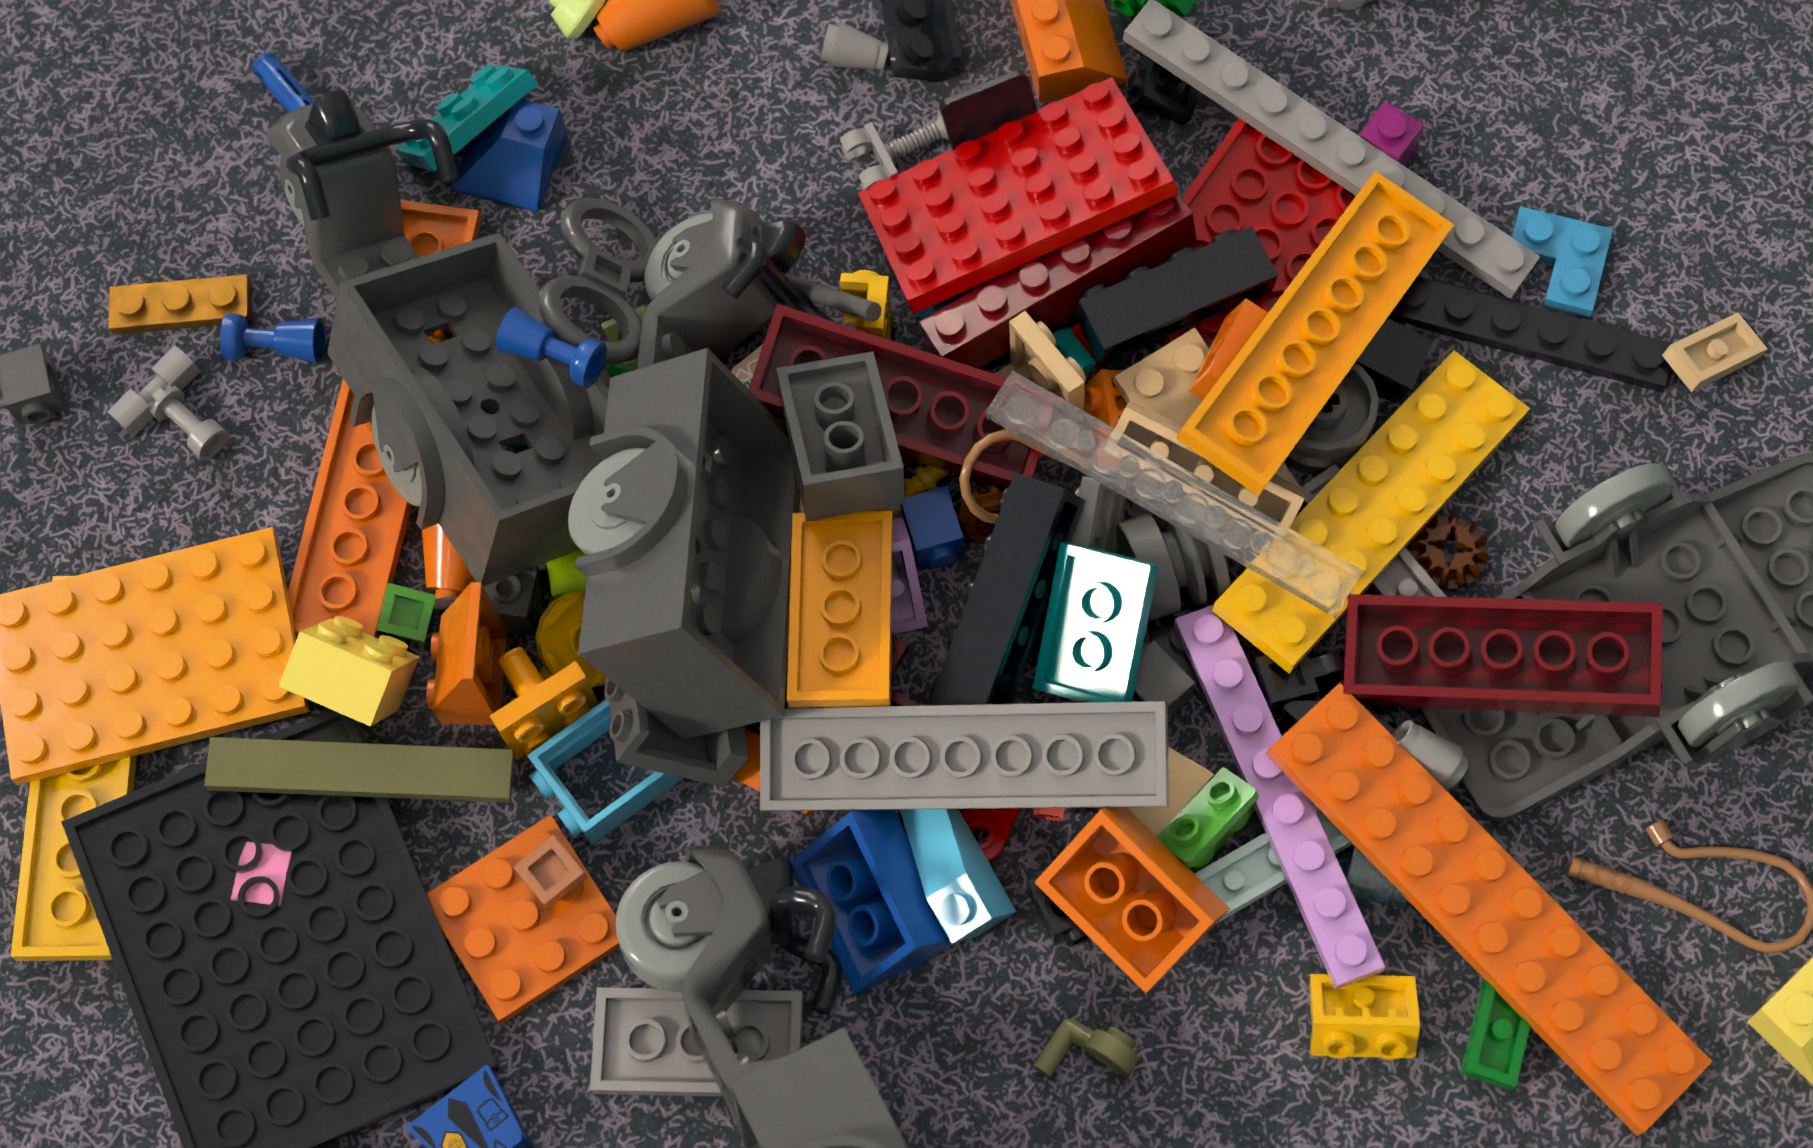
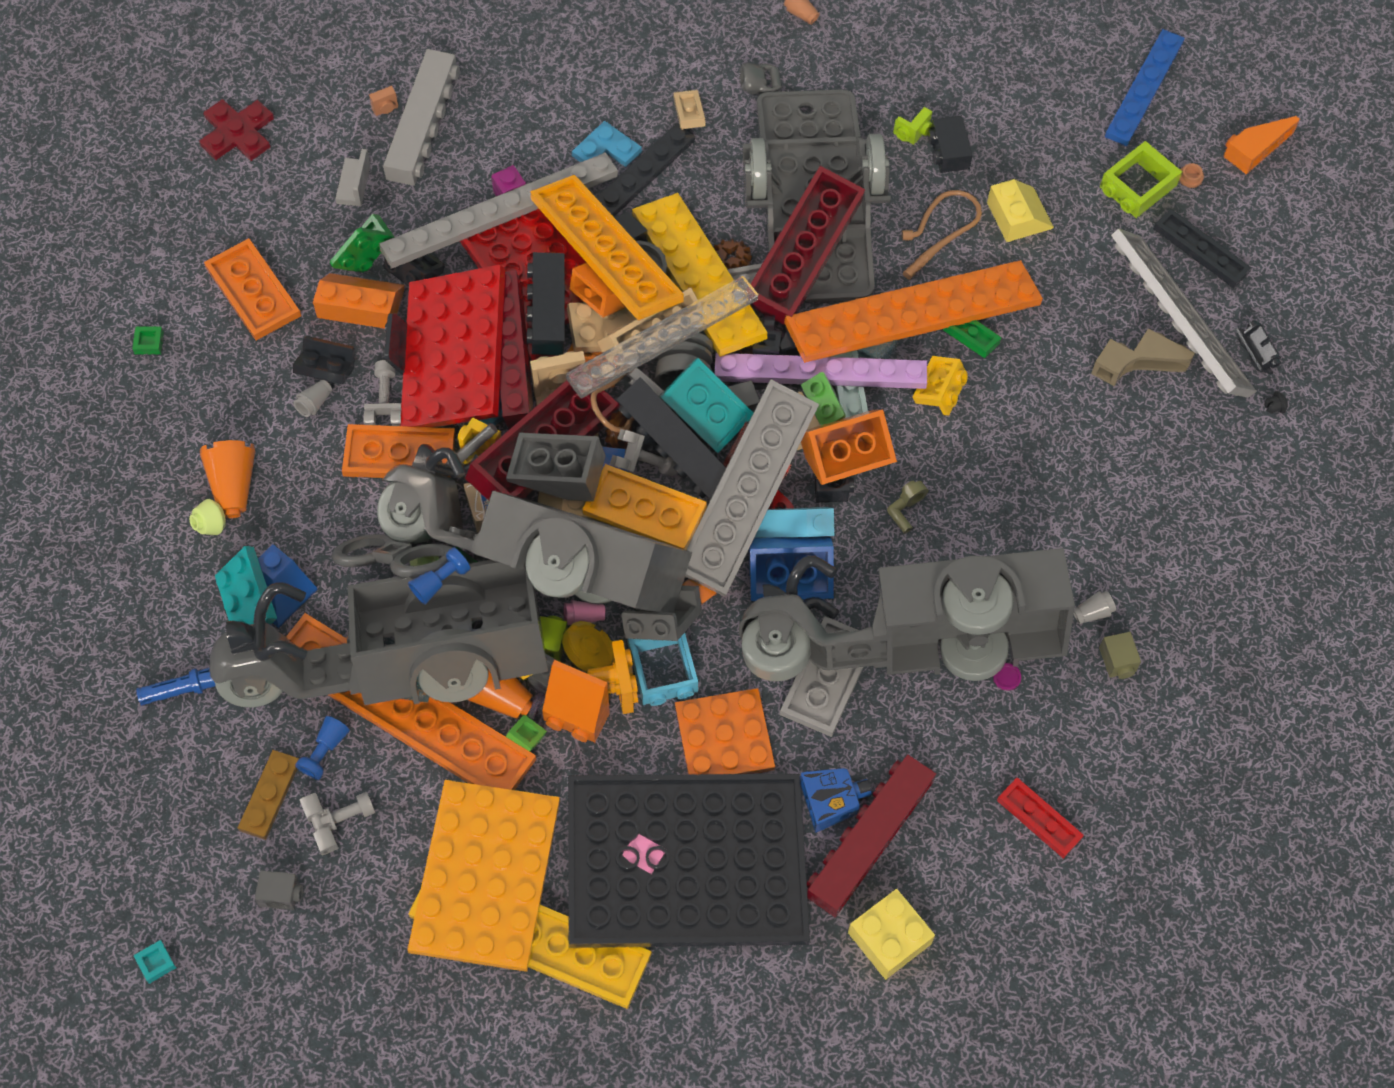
camera: 75 degrees left, 5 degrees down
(349, 670) = (554, 762): light yellow brick -> none
(359, 769) = (611, 780): olive tile -> none
(550, 872) = (712, 706): nougat plate -> none
(808, 183) = (378, 448): none -> orange plate
(967, 539) = (635, 453): none -> light grey bar
(1435, 753) = (834, 296): light grey cone -> none

